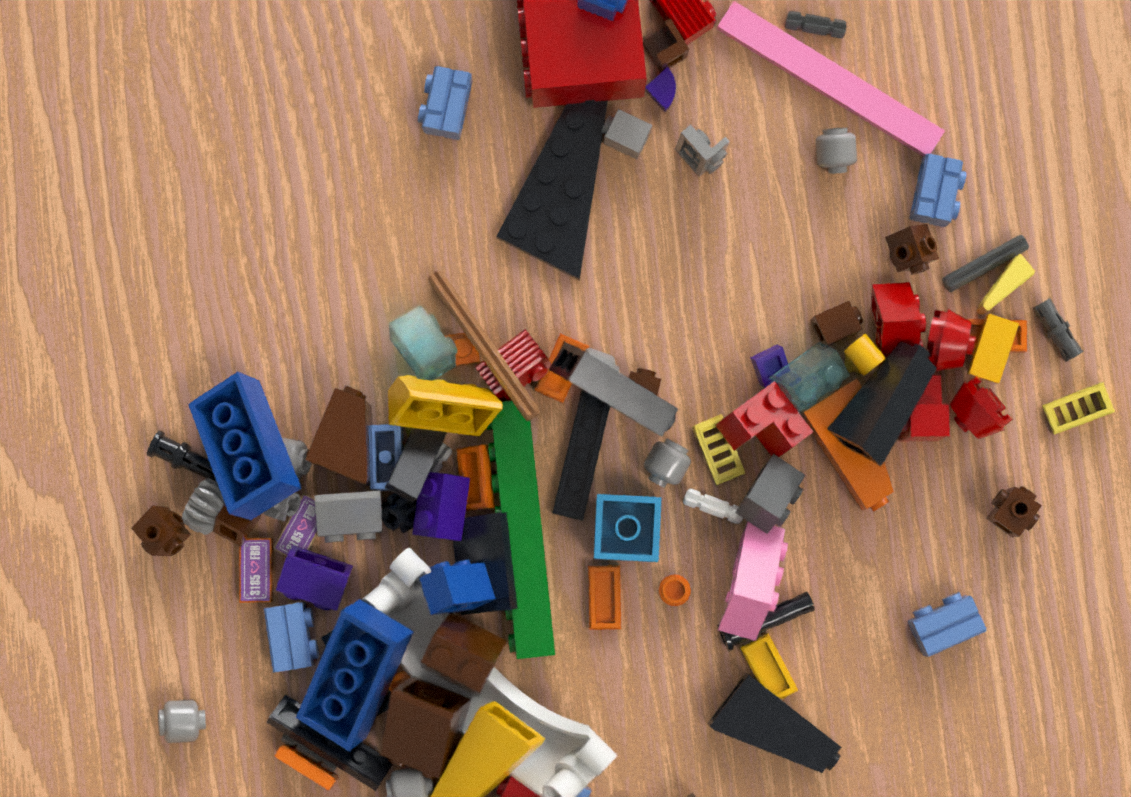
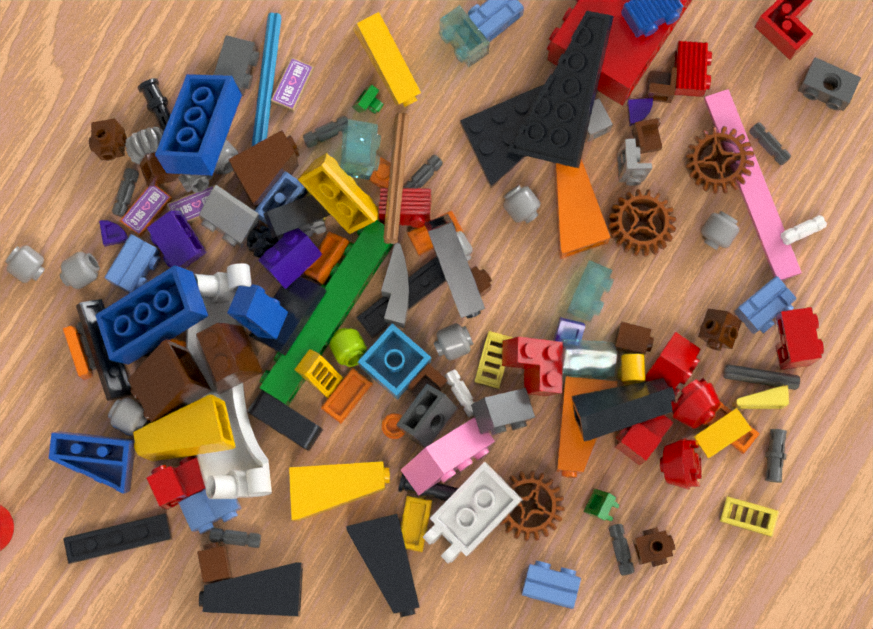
camera: 40 degrees right, 5 degrees down
(221, 569) = (125, 192): none -> dark grey axle
(226, 351) = (237, 60): none -> dark grey brick
(240, 684) = (79, 270): none -> light grey head
(242, 620) = (112, 233): none -> dark purple tile
(271, 347) = (266, 78): none -> dark azure axle
(300, 329) = (292, 84): none -> tile
(372, 351) = (325, 132): none -> dark grey axle
(376, 231) = (387, 59): none -> yellow slope
(389, 288) = (368, 101): none -> green tile
(434, 148) = (464, 36): none -> clear light blue brick
(503, 318) = (424, 173): none -> dark grey axle
(562, 598) = (307, 366): none -> yellow slope
(565, 670) = (285, 420): none -> black beam
(569, 549) = (347, 346): none -> lime head
(571, 453) = (396, 288): none -> light grey slope
(594, 144) = (564, 106): none -> black wing
(624, 274) = (521, 204): none -> light grey head
(662, 697) = (331, 486): none -> yellow slope
(675, 524) = (427, 376): none -> reddish brown panel
(683, 237) = (578, 212): none -> orange slope
(692, 109) = (647, 135): none -> reddish brown panel
(700, 557) = (426, 416): none -> dark grey brick
(759, 308) = (587, 297): none -> clear light blue brick
(769, 202) = (657, 207): none -> dark orange gear
(803, 98) = (731, 158): none -> dark orange gear
(819, 615) = (472, 512): none -> white tile
(870, 579) = (549, 514): none -> dark orange gear
(915, 87) = (803, 230): none -> white axle
(932, 509) = (600, 505): none -> green tile
(984, 536) = (621, 549): none -> dark grey axle
(997, 200) = (798, 339): none -> red brick

